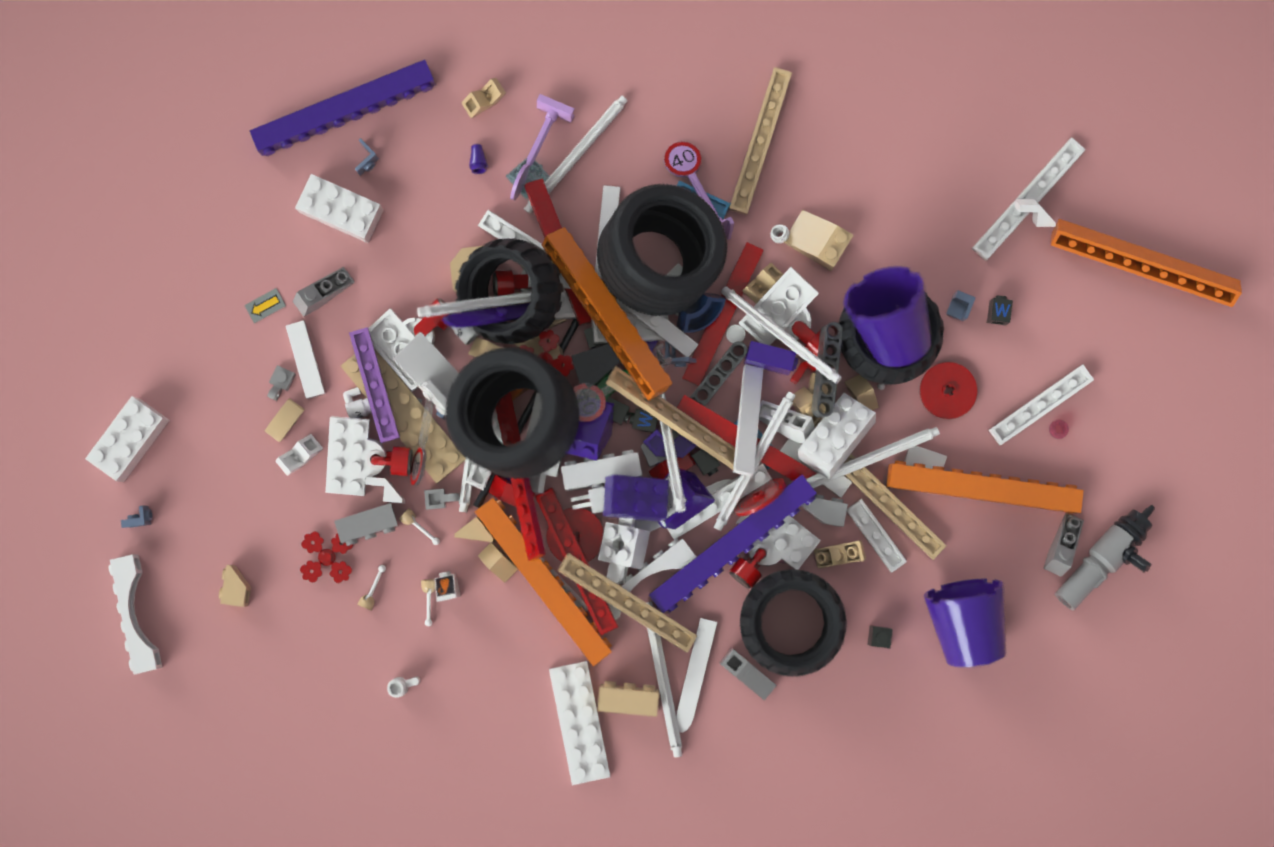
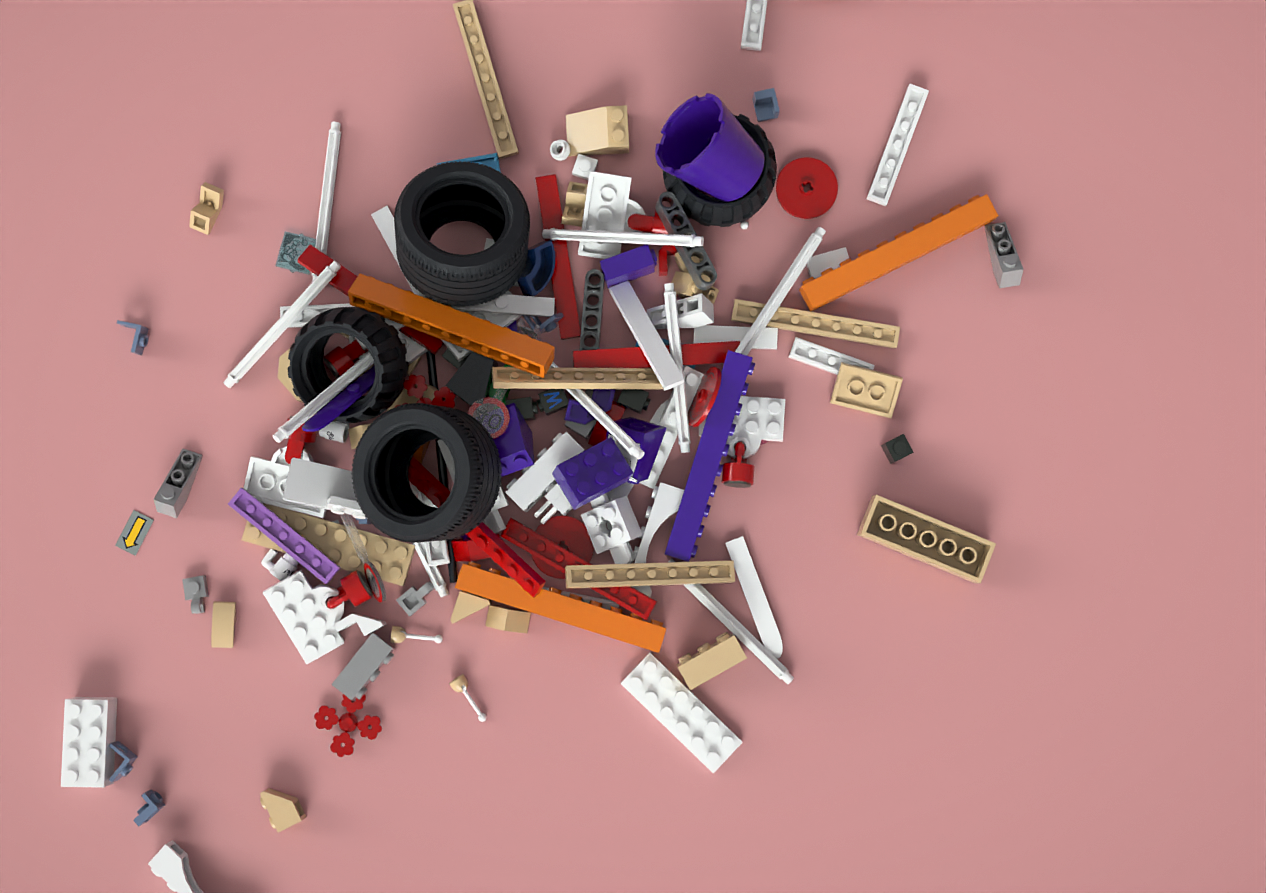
camera: 30 degrees left, 0 degrees up
(141, 477) = (126, 766): none -> sand blue bracket
(299, 455) = (260, 646): white slope -> none
(305, 359) = (205, 556): white tile -> none
(339, 208) = (142, 397): white brick -> none
(342, 108) = (82, 304): dark purple brick -> none
(367, 601) = (412, 736): hinge -> none
(399, 686) = (496, 793): white piece -> none
(446, 586) = (476, 673): slope -> none
(477, 160) = (241, 270): dark purple cone -> none
(482, 224) = (282, 324): none -> white piece
(554, 109) = (279, 175): lavender piece -> none
(684, 161) = (429, 142): lavender piece -> none
(735, 333) = (581, 266): white piece -> none
(747, 674) = (802, 563): light grey slope -> none
(789, 259) = (583, 166): none -> white plate
(827, 511) = (773, 369): light grey slope -> none
(832, 633) = (852, 472): black tyre -> none
(837, 436) = (735, 295): white brick -> none
(840, 554) = (811, 399): tan slope -> none
(854, 721) = (926, 539): none -> tan brick
(862, 391) = (732, 243): tan slope -> none
(887, 576) = (866, 390): none -> tan tile
(969, 621) = (967, 379): dark purple cone -> none
(999, 310) = (803, 86): pearl dark grey brick -> none
(1064, 429) = (927, 150): clear pink plate -> none
(1107, 556) = (1048, 238): light grey piece -> none

